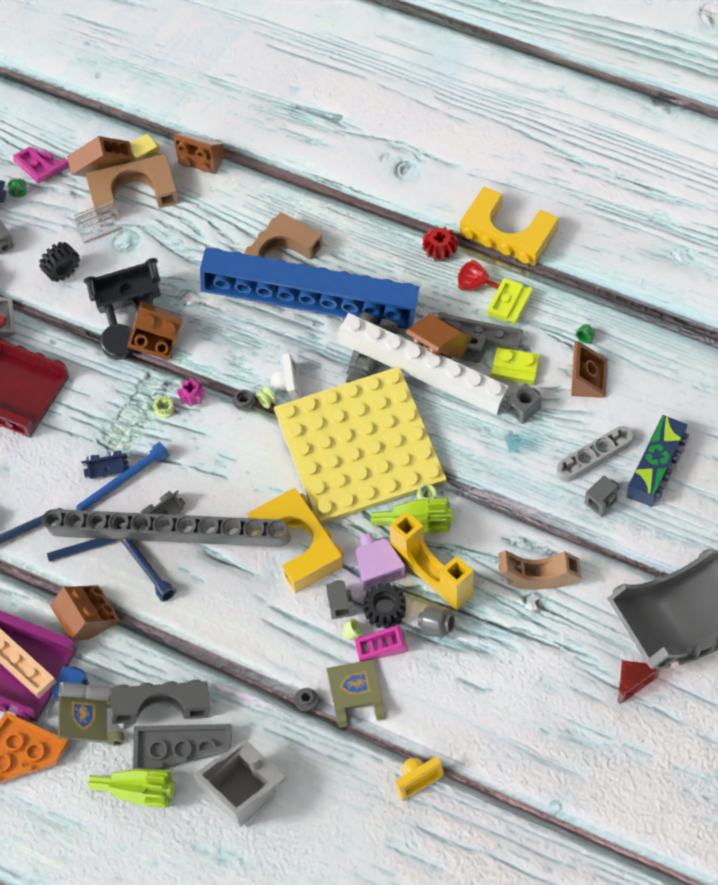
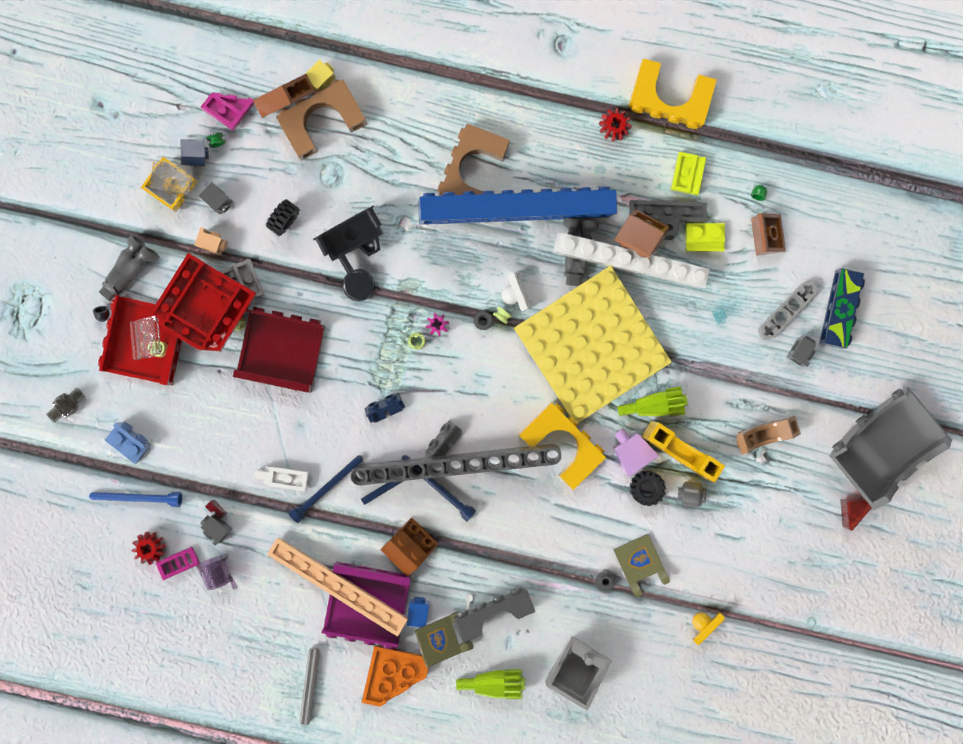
camera: 15 degrees left, 30 degrees up
(79, 690) = (437, 623): light grey piece -> none
(98, 222) = (303, 166): clear plate -> none
(155, 330) = (389, 271): dark orange slope -> none
(157, 453) = (424, 389): blue piece -> none
(176, 744) = (516, 640): dark grey wing -> none
(199, 152) = (372, 68): dark orange slope -> none
(339, 600) = (610, 491): dark grey brick -> none
(352, 629) = (627, 514): yellowish green hinge -> none
(392, 649) = (654, 527): dark pink slope -> none
(431, 492) = (661, 379): yellowish green hinge -> none
(473, 277) = (651, 155): red piece -> none
(520, 410) = (714, 279): dark grey brick -> none

